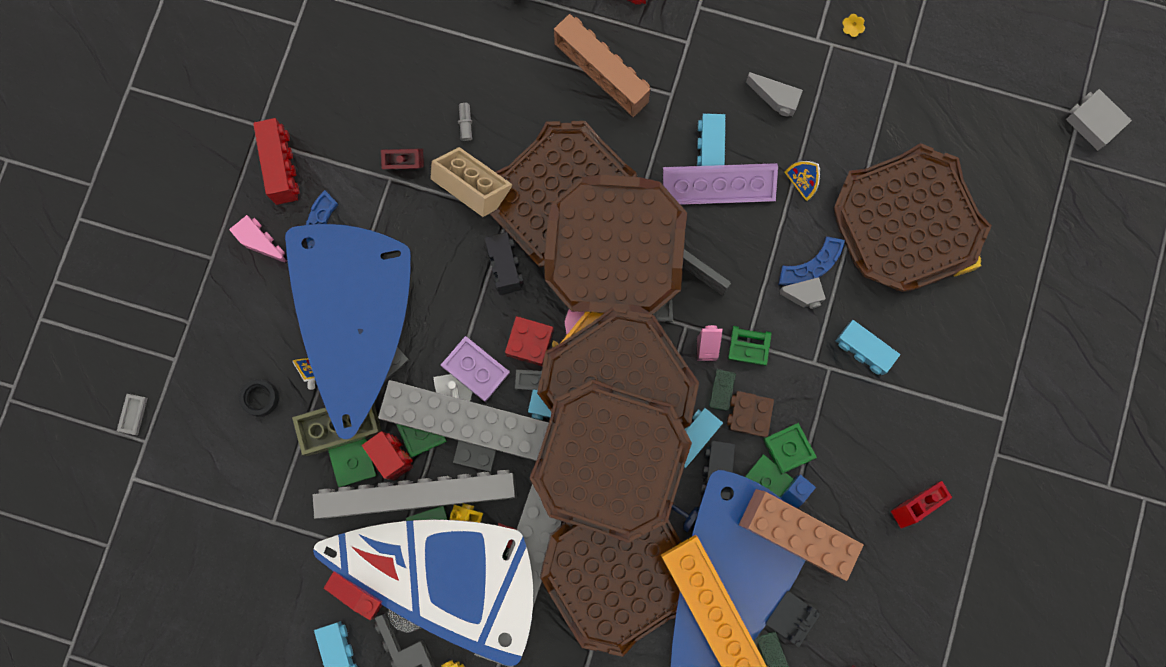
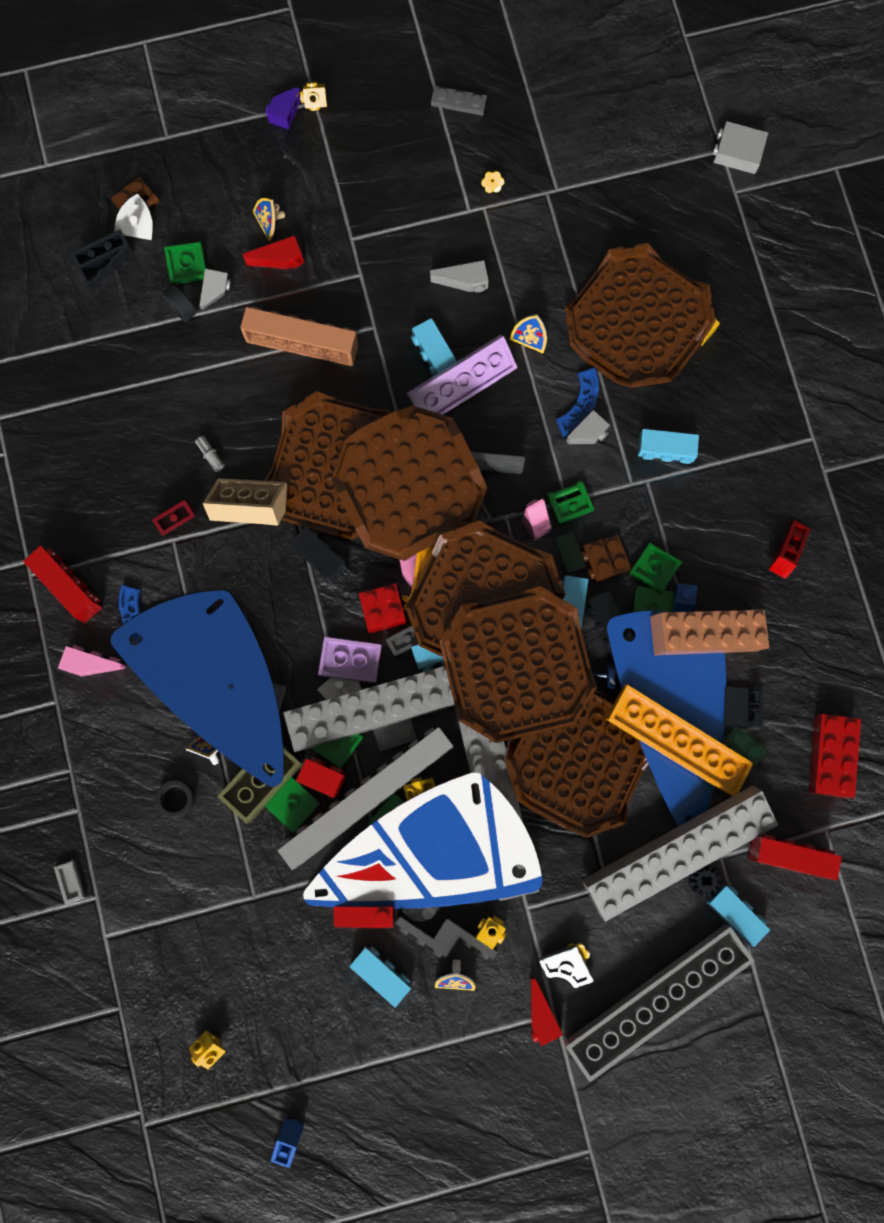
camera: 35 degrees left, 0 degrees up
(155, 625) = (206, 1050): none -> yellow brick

